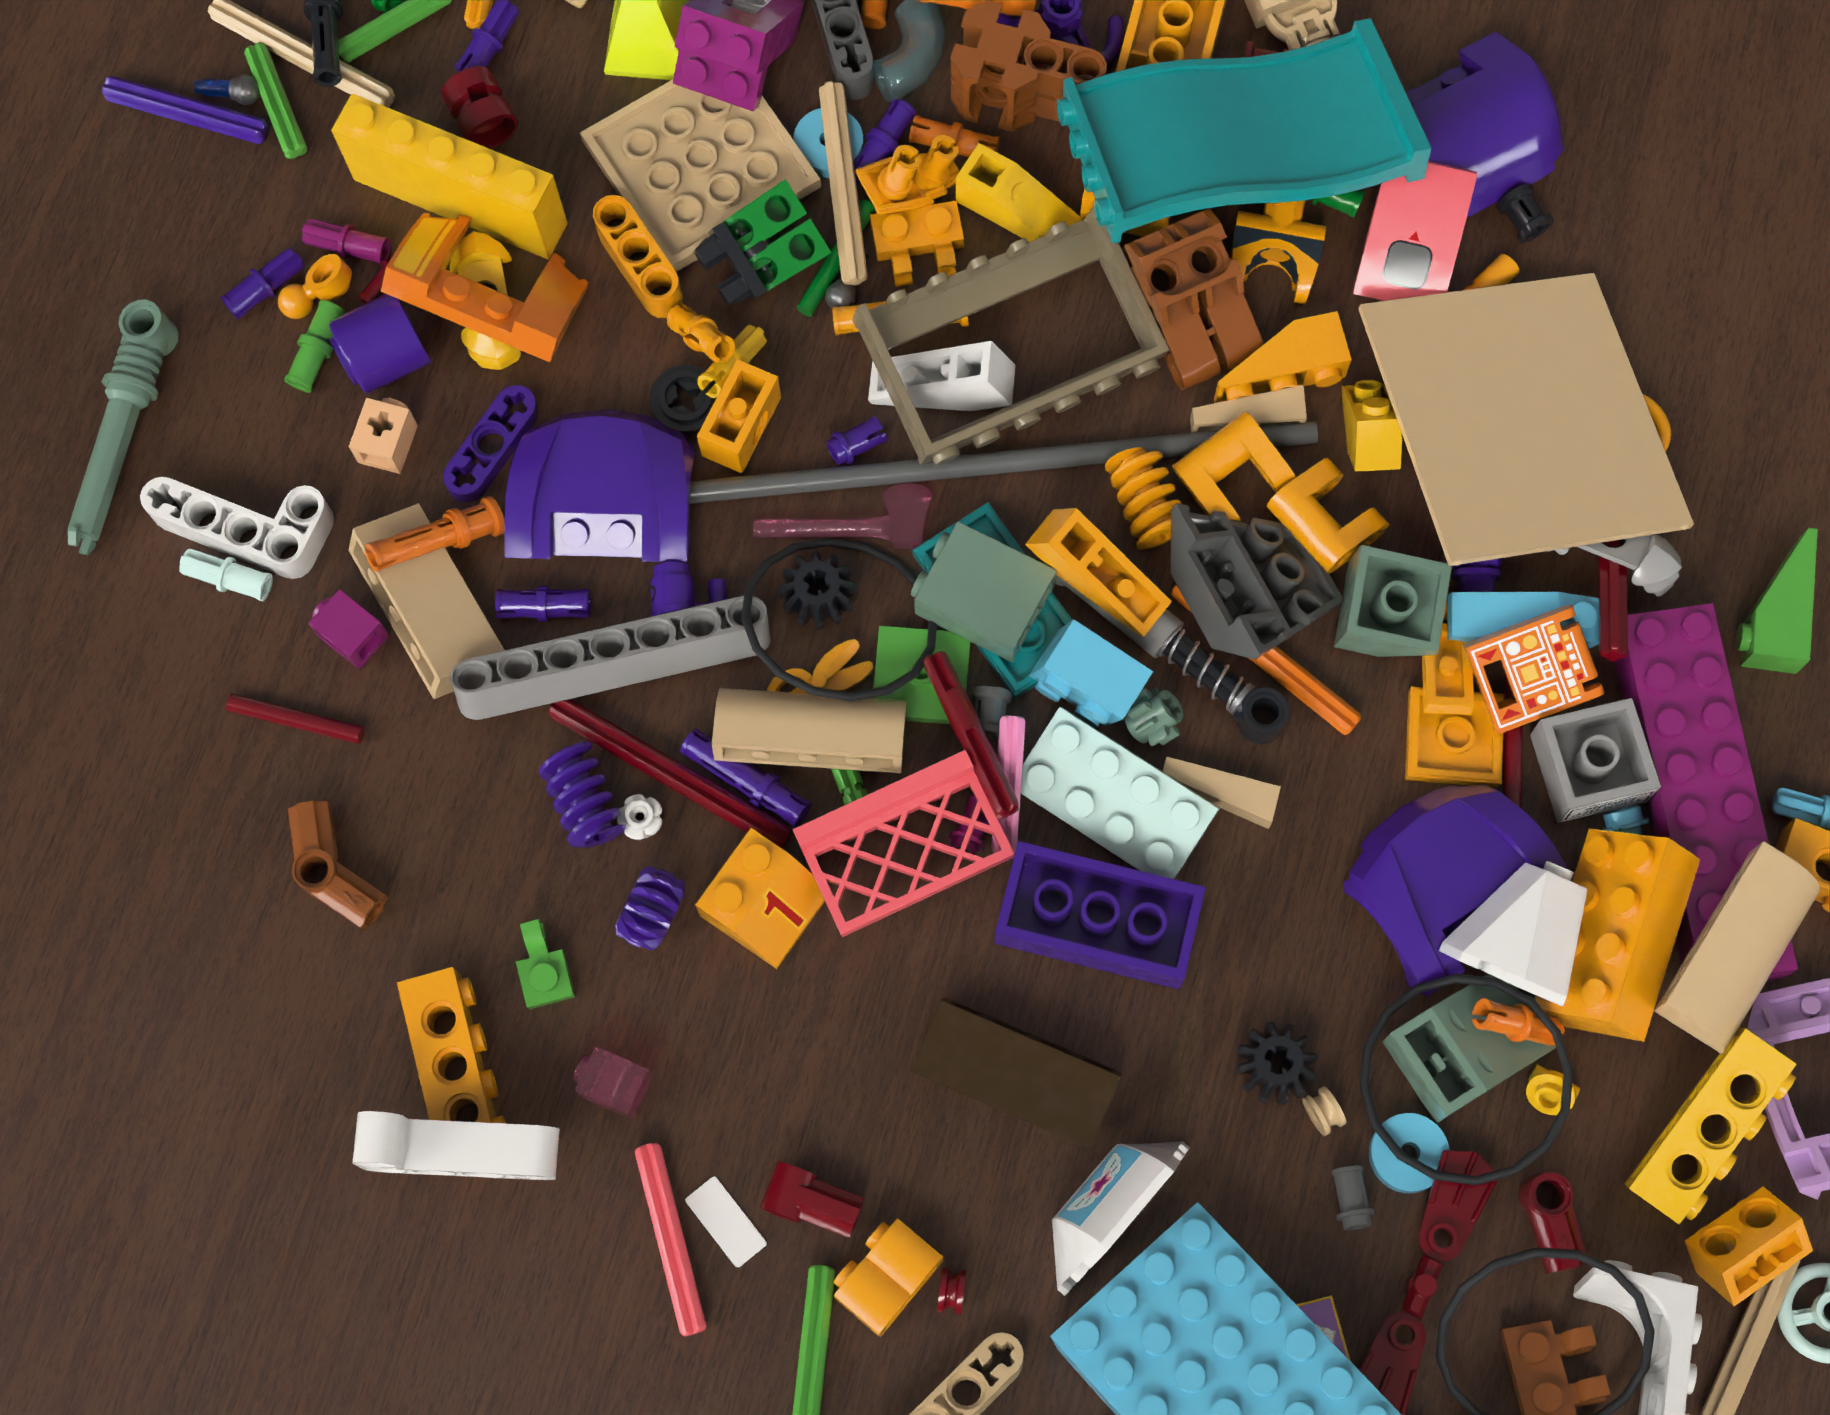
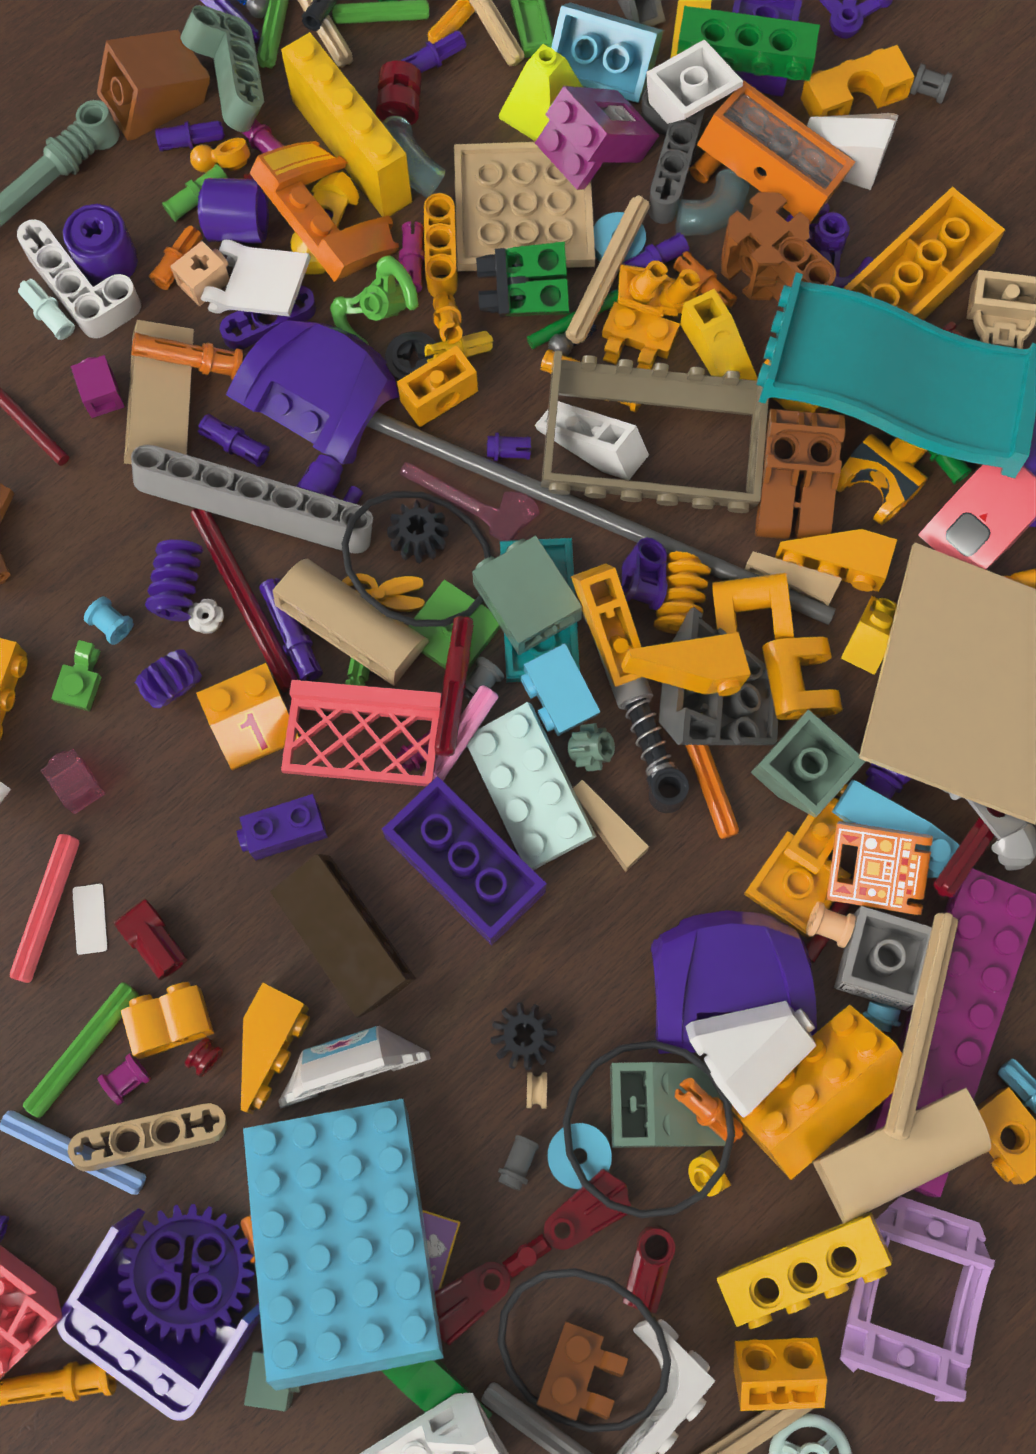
camera: 30 degrees right, 0 degrees up
(179, 245) = (150, 81): none -> dark orange slope
(267, 467) = (99, 243): none -> dark purple piece
(268, 171) = (235, 60): none -> sand green beam
(339, 432) = (162, 274): none -> orange axle
(458, 407) = (260, 281): none -> white flag
(535, 883) = (108, 620): none -> medium azure bush
(573, 181) = (423, 170): none -> clear light blue cylinder
(611, 286) = (411, 254): none -> magenta pin
(612, 354) = (381, 298): none -> bright green piece
(877, 996) = (281, 827): none -> dark purple brick
(881, 1366) = (124, 1079): none -> magenta bush
(1003, 1220) = (267, 1033): none -> light orange slope
(1097, 494) = (645, 573): none -> dark purple piece
(1219, 565) = (697, 665): none -> light orange slope
(1518, 758) = (831, 924): none -> light nougat bush
(1680, 805) = (921, 1027): none -> tan axle

